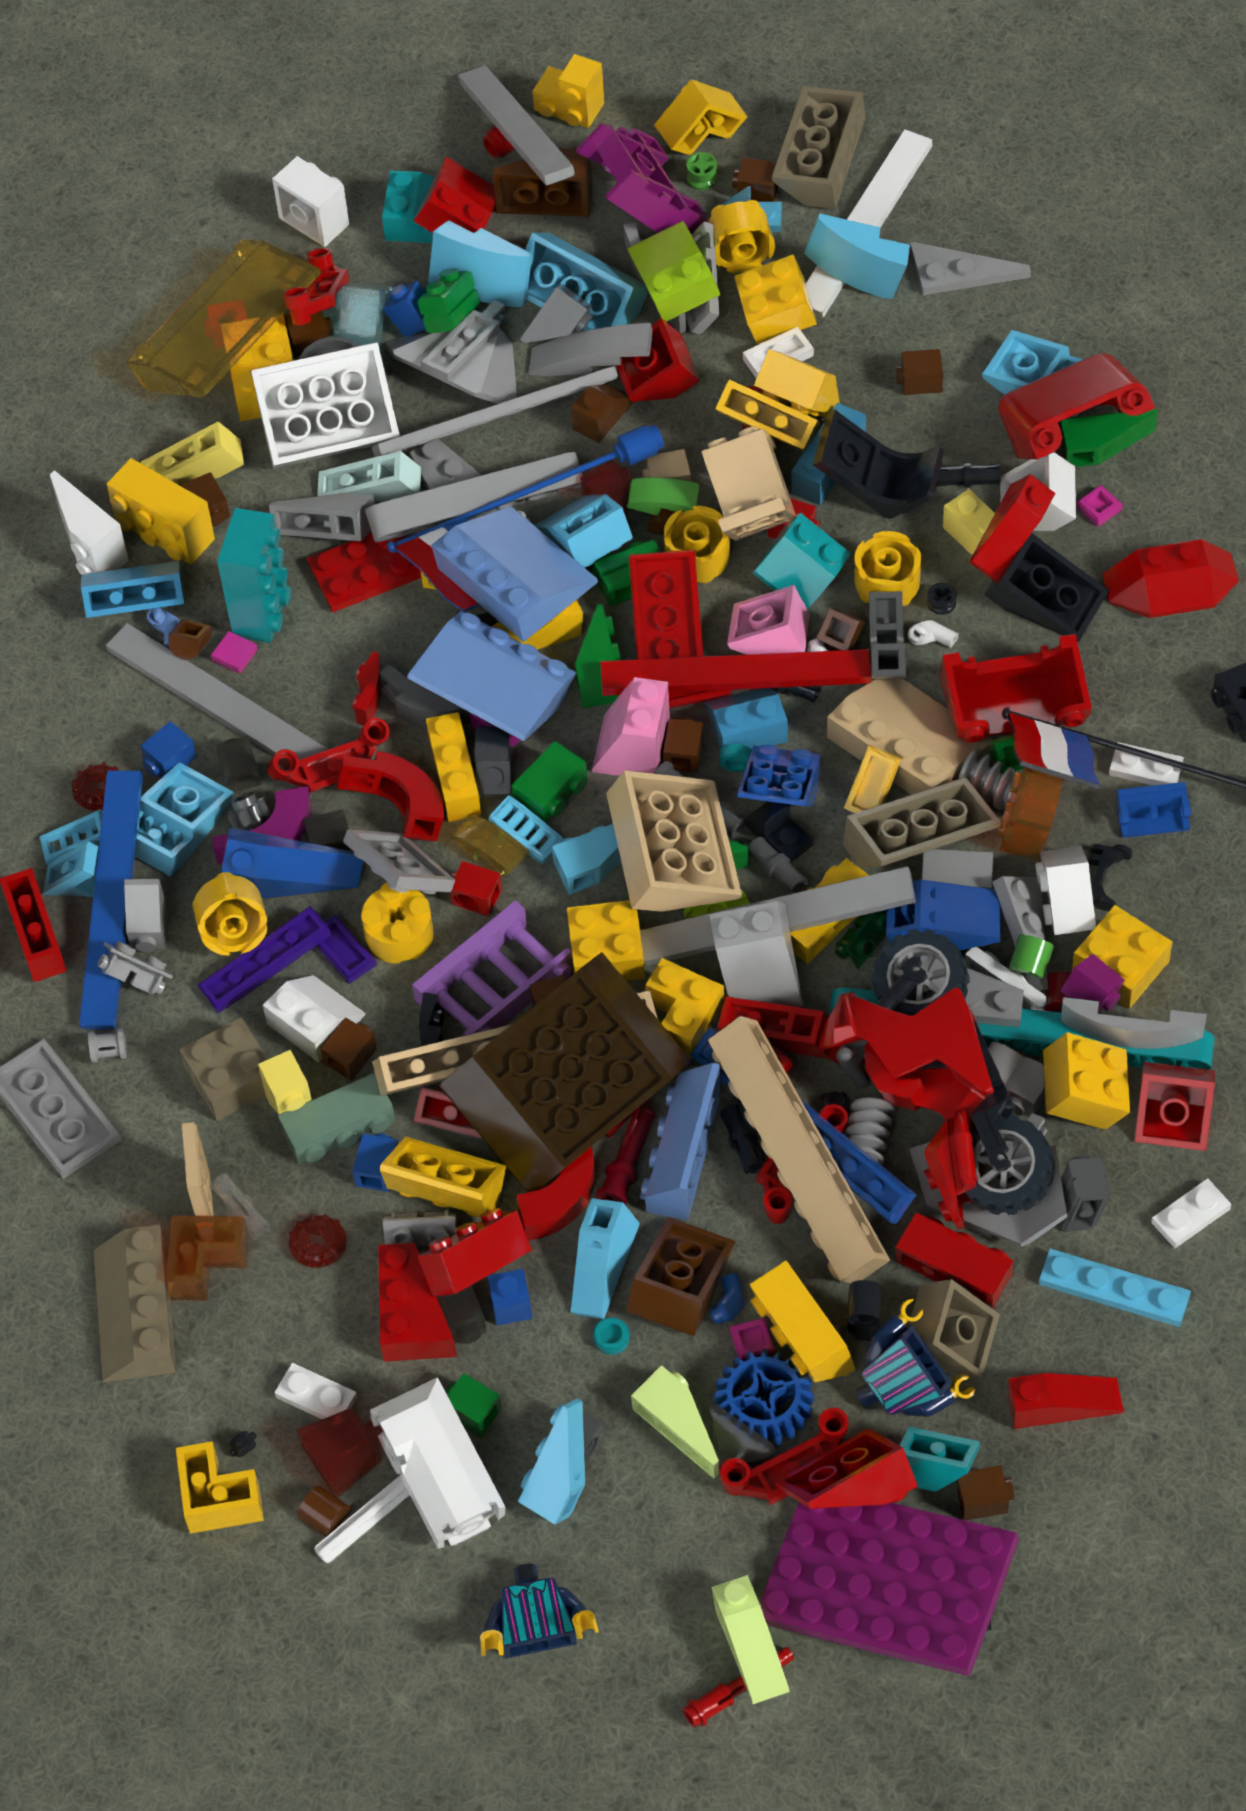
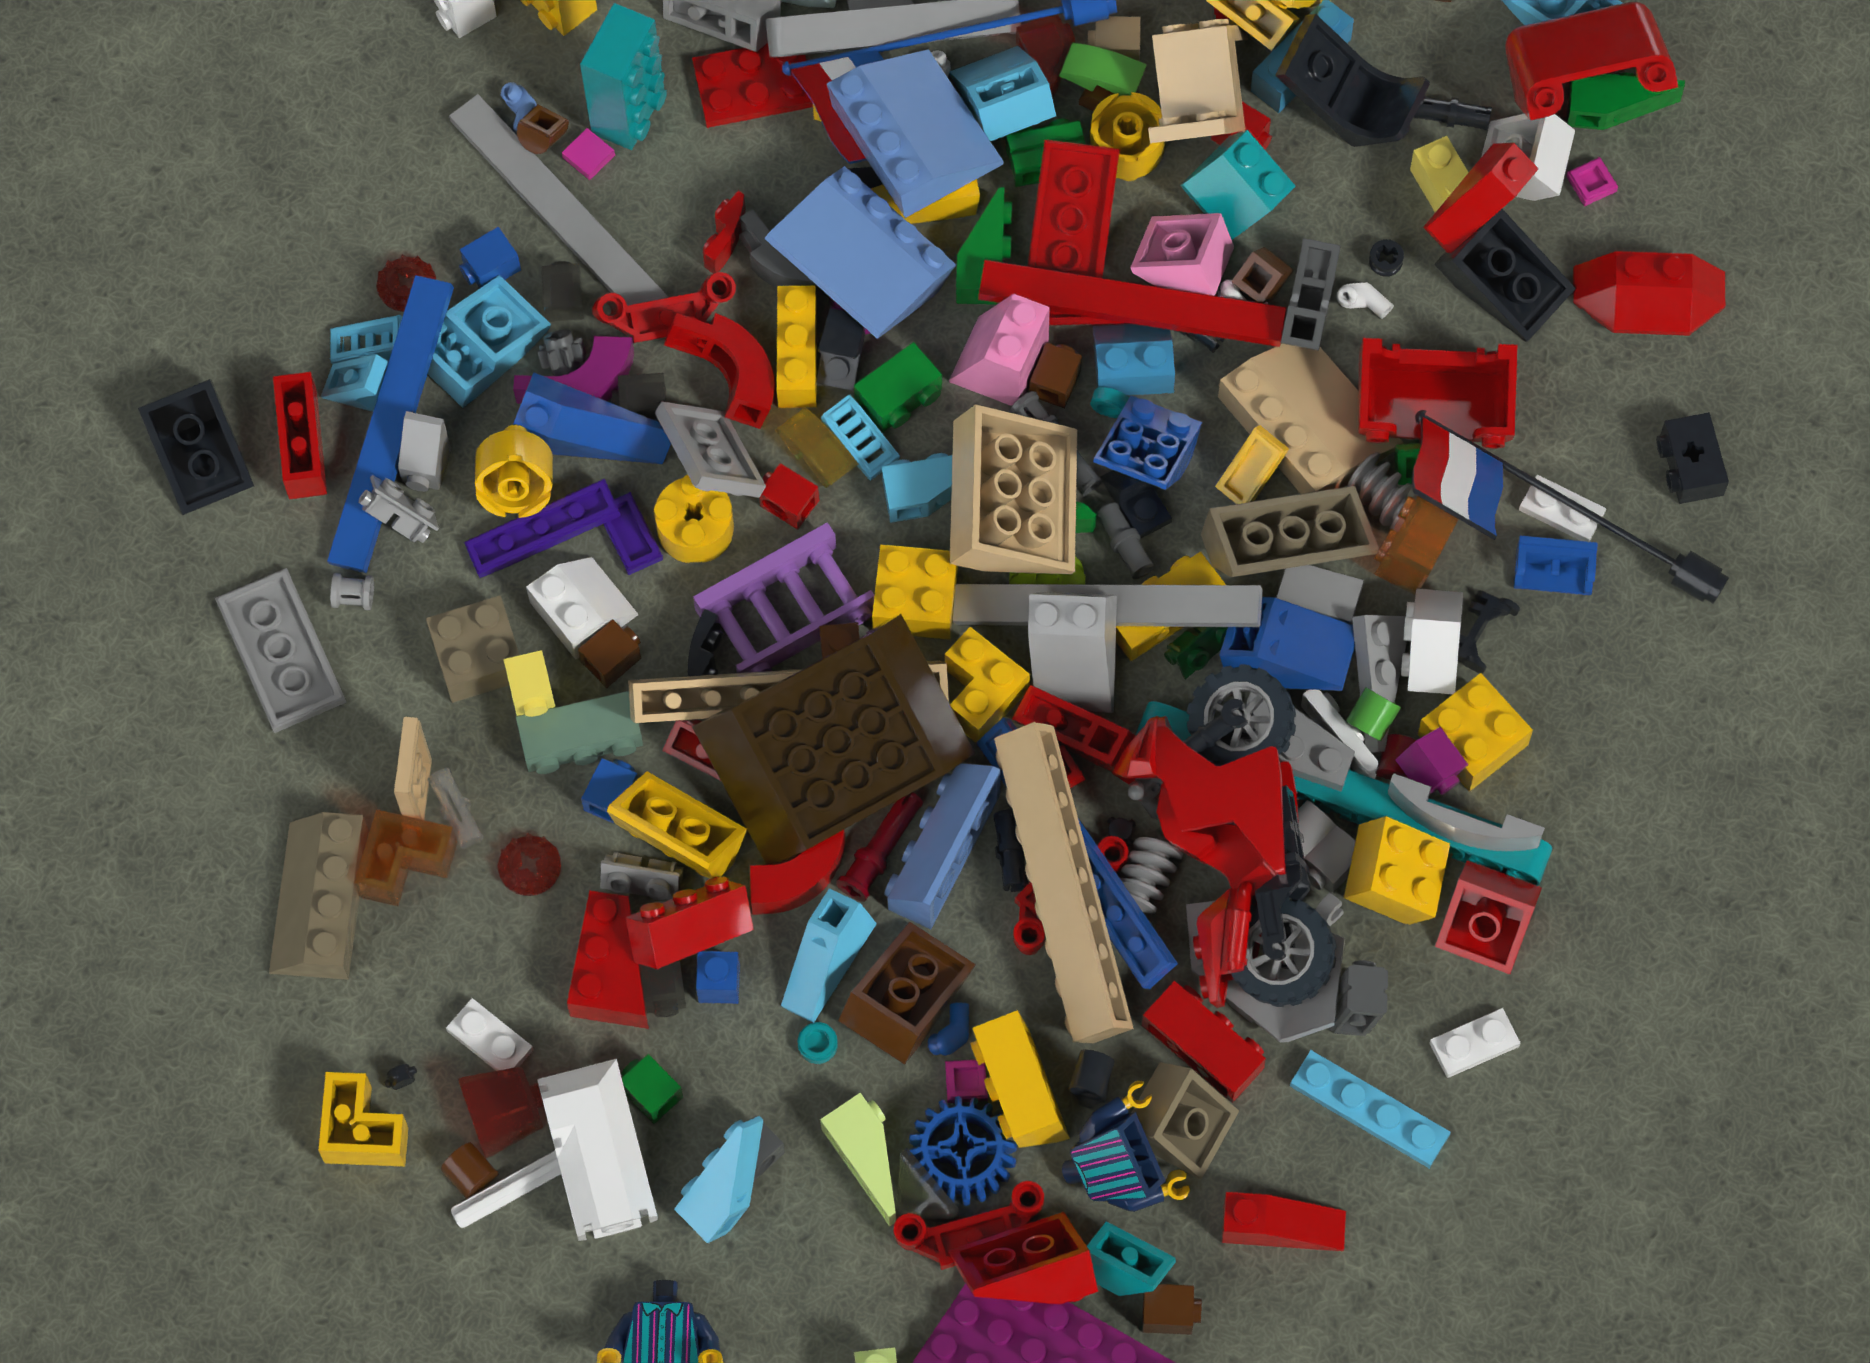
camera: 10 degrees right, 10 degrees up
(132, 589) = (491, 56): dark azure brick -> none
(887, 565) = (1333, 210): yellow brick -> none

